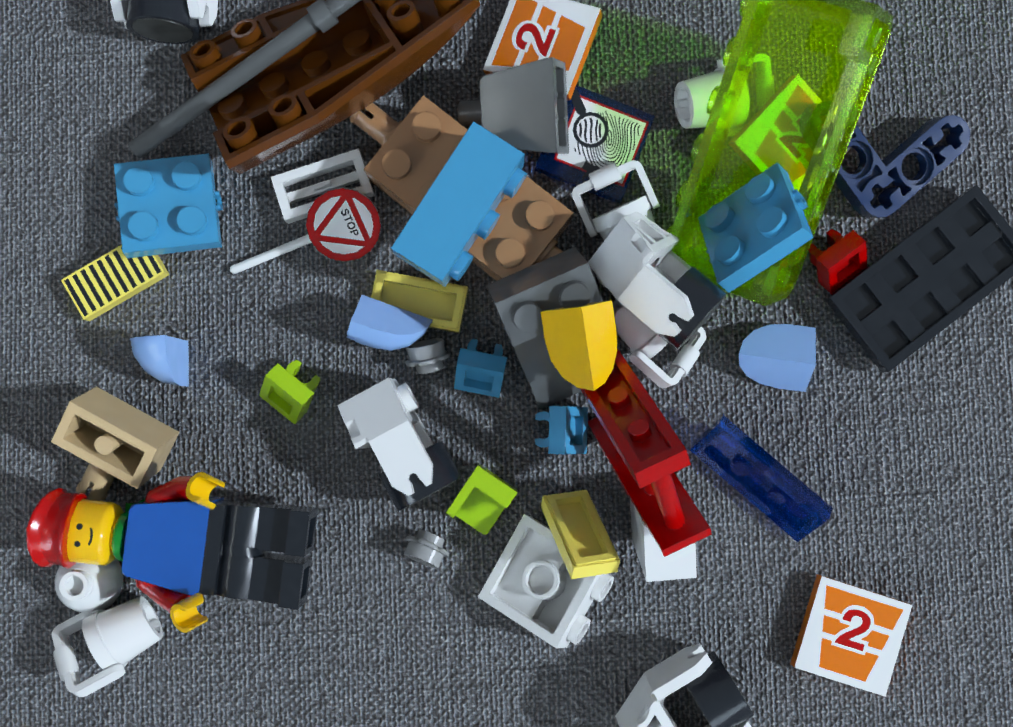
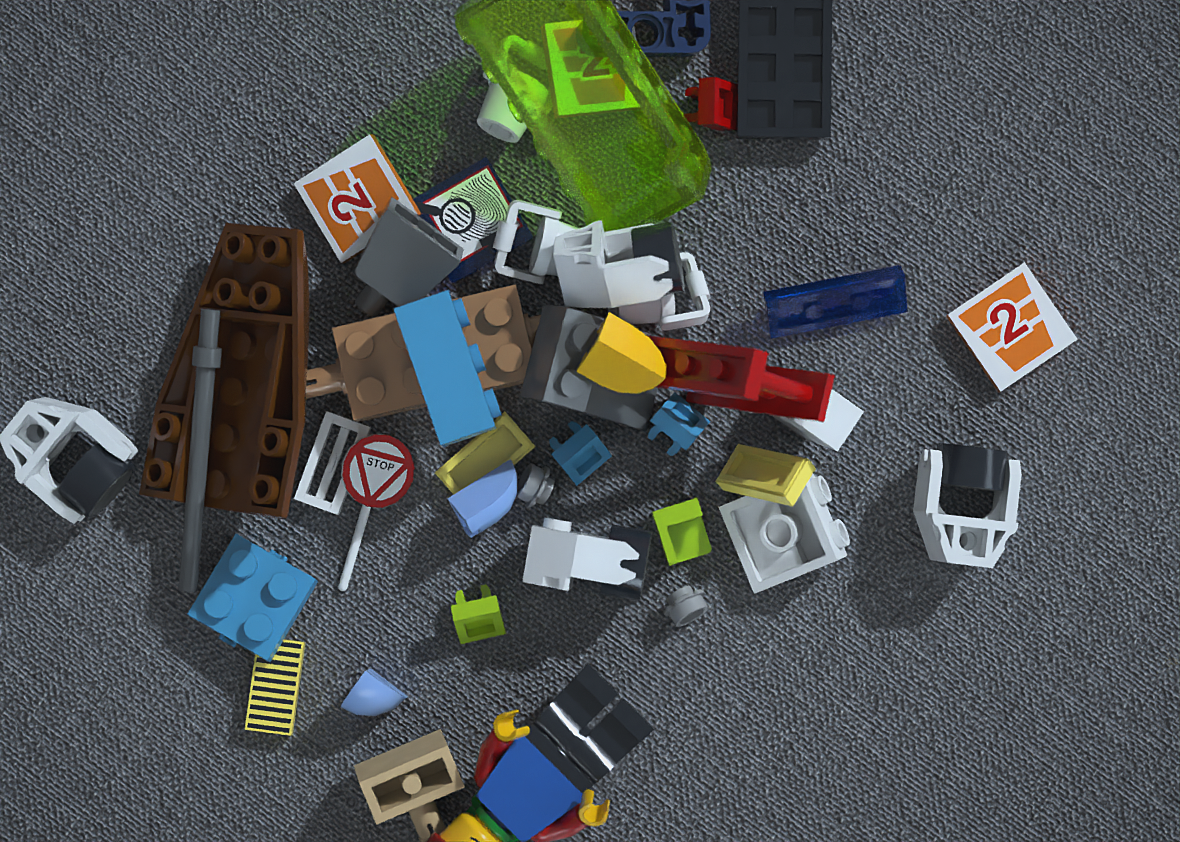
camera: 55 degrees left, 0 degrees up
(755, 227) = (637, 159): dark azure plate -> none
(780, 356) = (752, 210): light blue brick -> none

